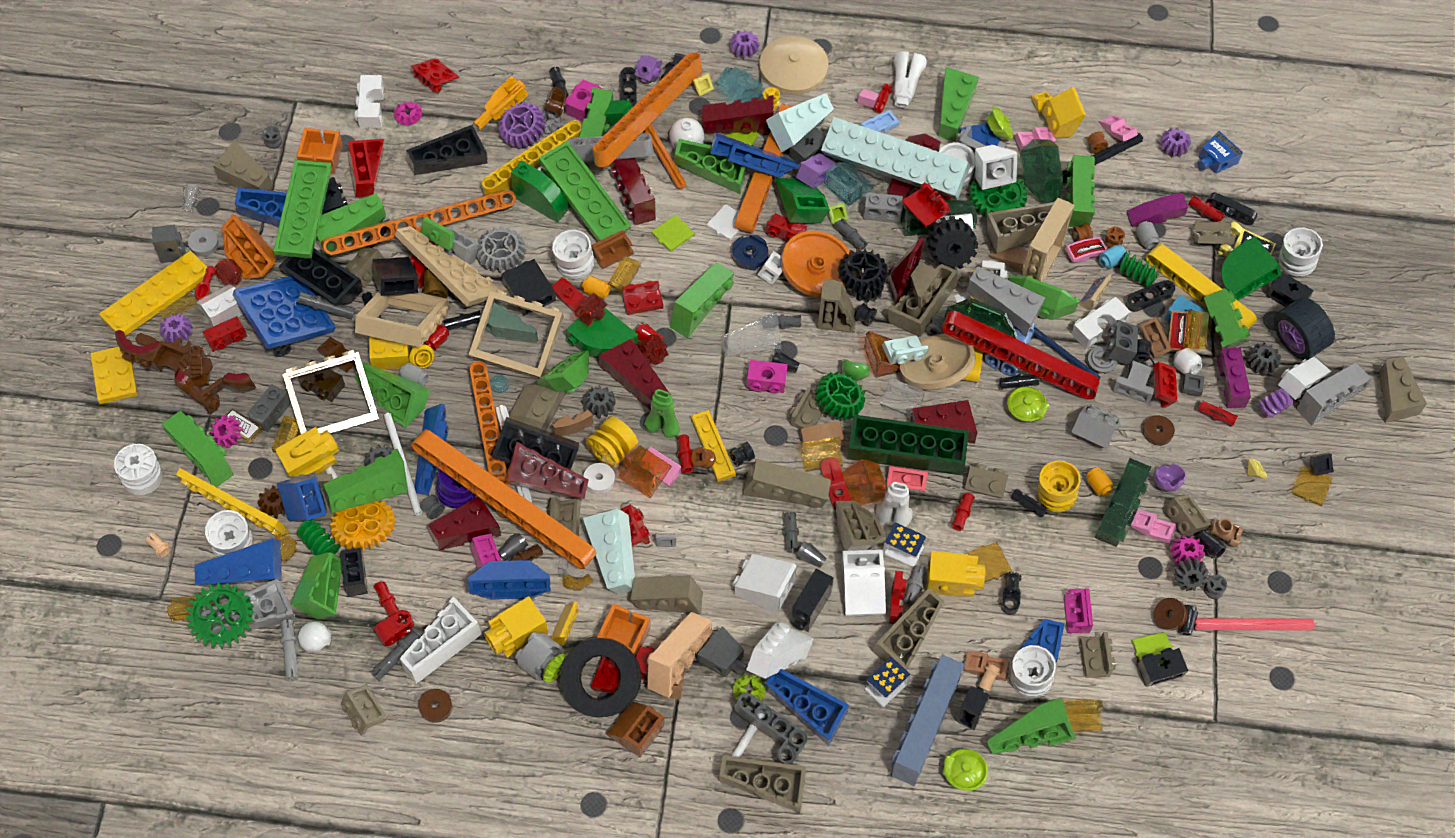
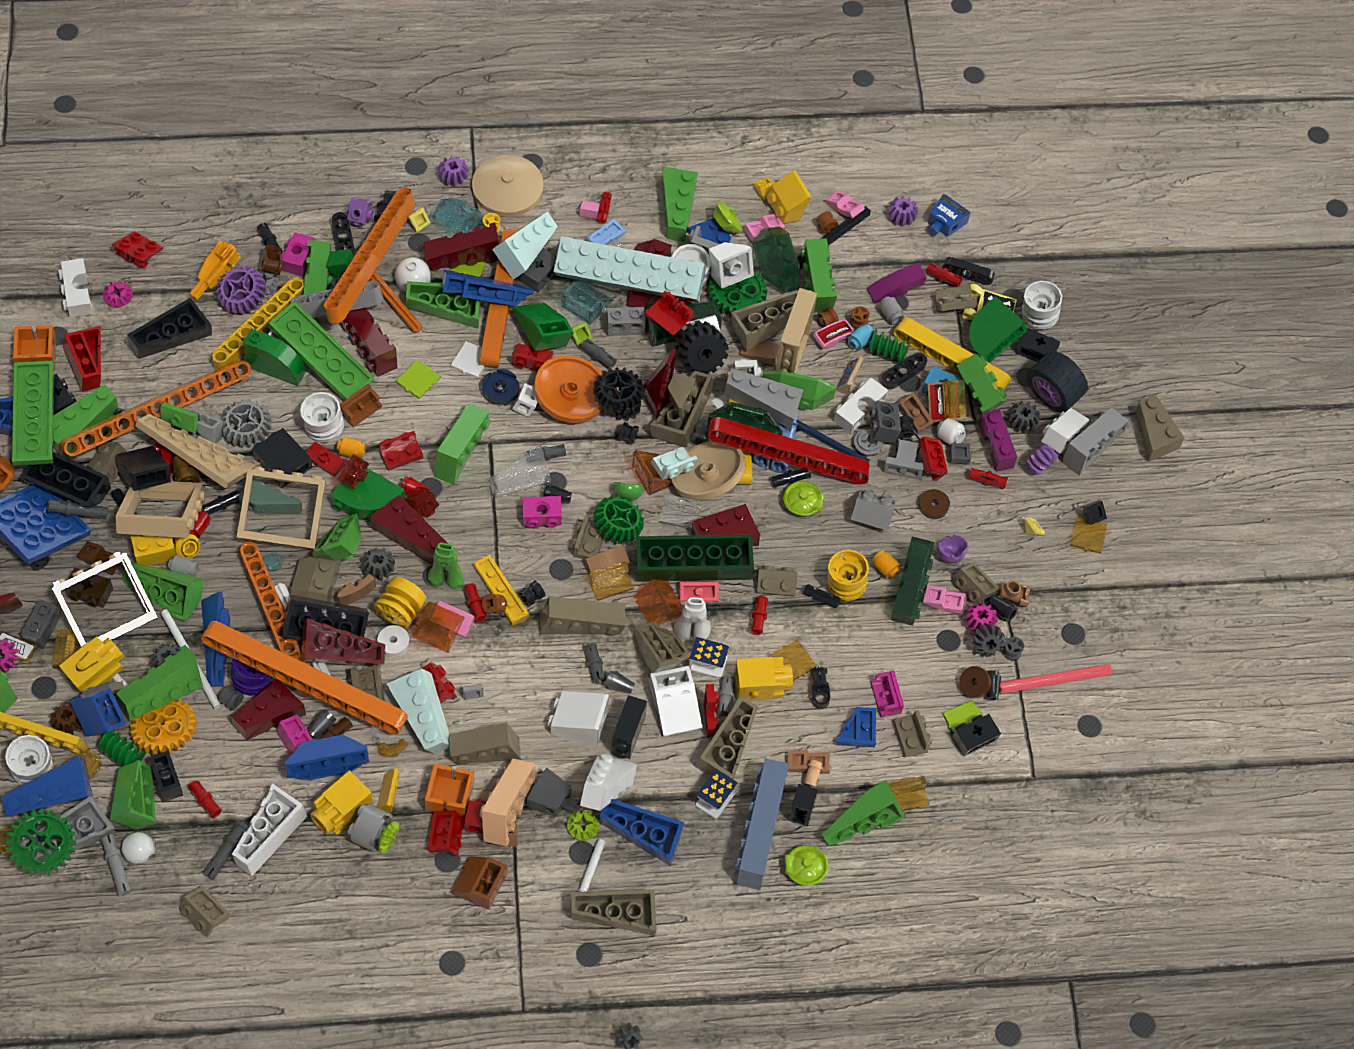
camera: 15 degrees left, 0 degrees up
(393, 629) = (216, 827): red piece -> none
(435, 714) = (277, 903): reddish brown piece -> none
(572, 683) = (414, 857): black tyre -> none
(624, 273) = (377, 428): clear yellow tile -> none
(768, 726) = (609, 857): dark grey beam -> none
(813, 170) = (550, 292): medium lavender brick -> none
(832, 470) = (623, 595): red piece -> none
(836, 308) = (598, 432): dark tan wedge -> none
(905, 87) = (625, 192): white piece -> none
(1032, 661) = (850, 750): white wheel -> none

